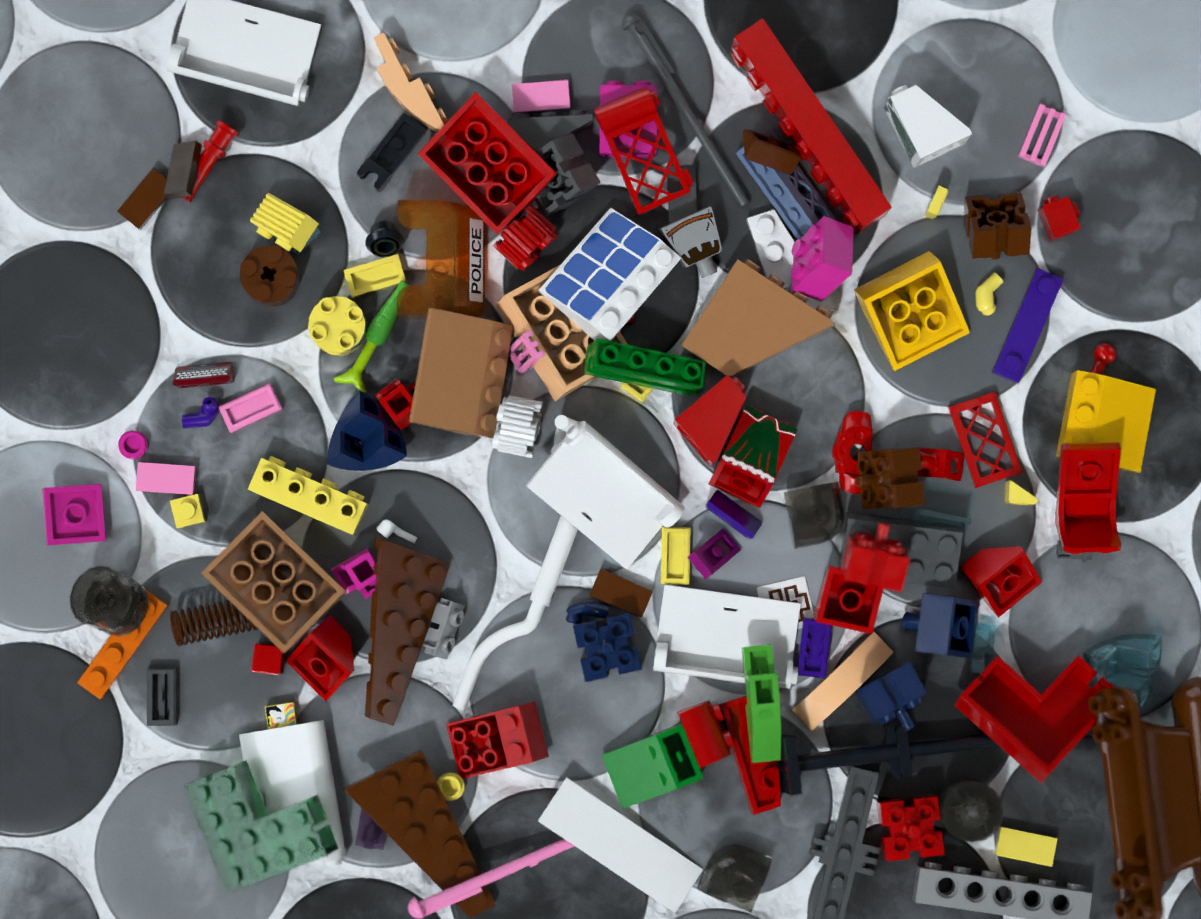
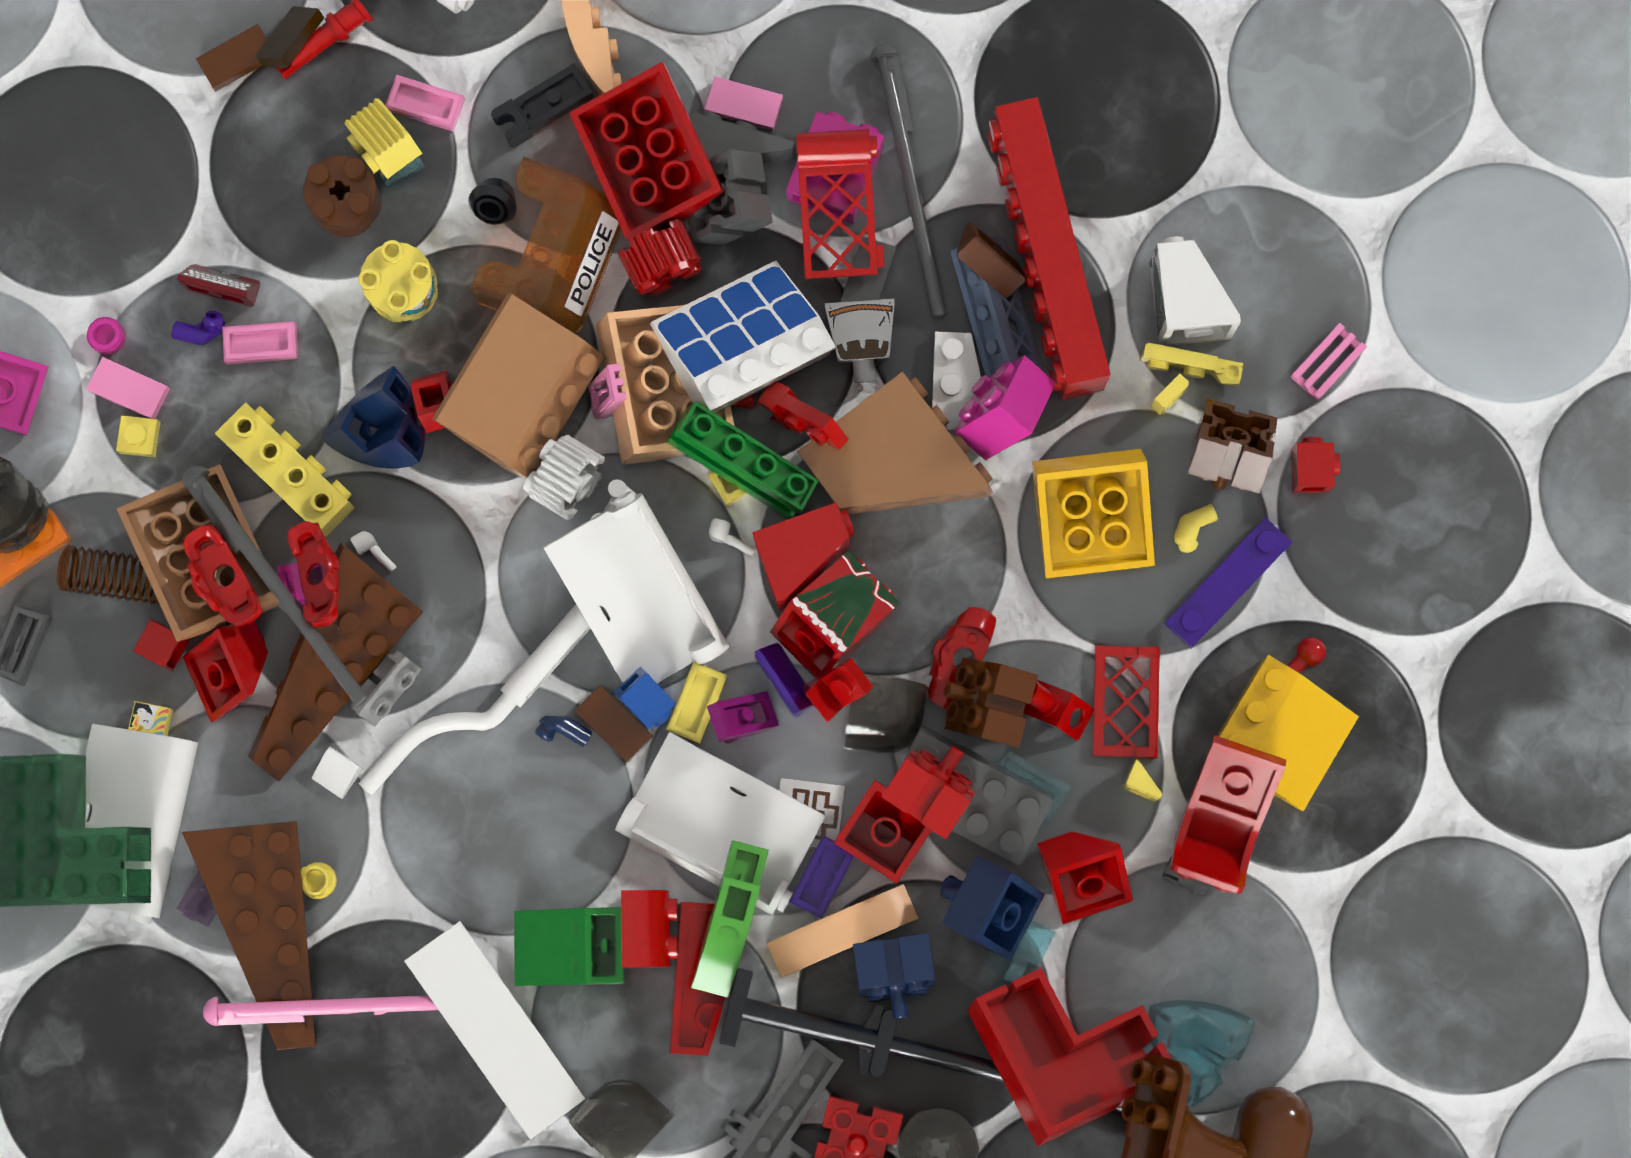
camera: 30 degrees right, 5 degrees down
(282, 579) = (208, 552): none -> red piece
(301, 563) = (195, 481): none -> dark grey bar
(302, 182) = (425, 103): none -> bright pink tile
(355, 550) = (312, 549): none -> red piece
(374, 276) = (467, 241): light yellow tile -> none
(376, 335) = (441, 310): piece -> none
(433, 703) = (336, 772): none -> white slope
(497, 740) = (396, 845): red slope -> none
(607, 647) = (570, 781): dark blue brick -> none
(638, 567) = (645, 698): none -> blue brick
(644, 424) = (719, 533): none -> white hand
(667, 319) = (799, 416): none -> red plate
(776, 509) = (837, 688): none -> red slope
(945, 174) = (1194, 363): none -> light yellow hinge

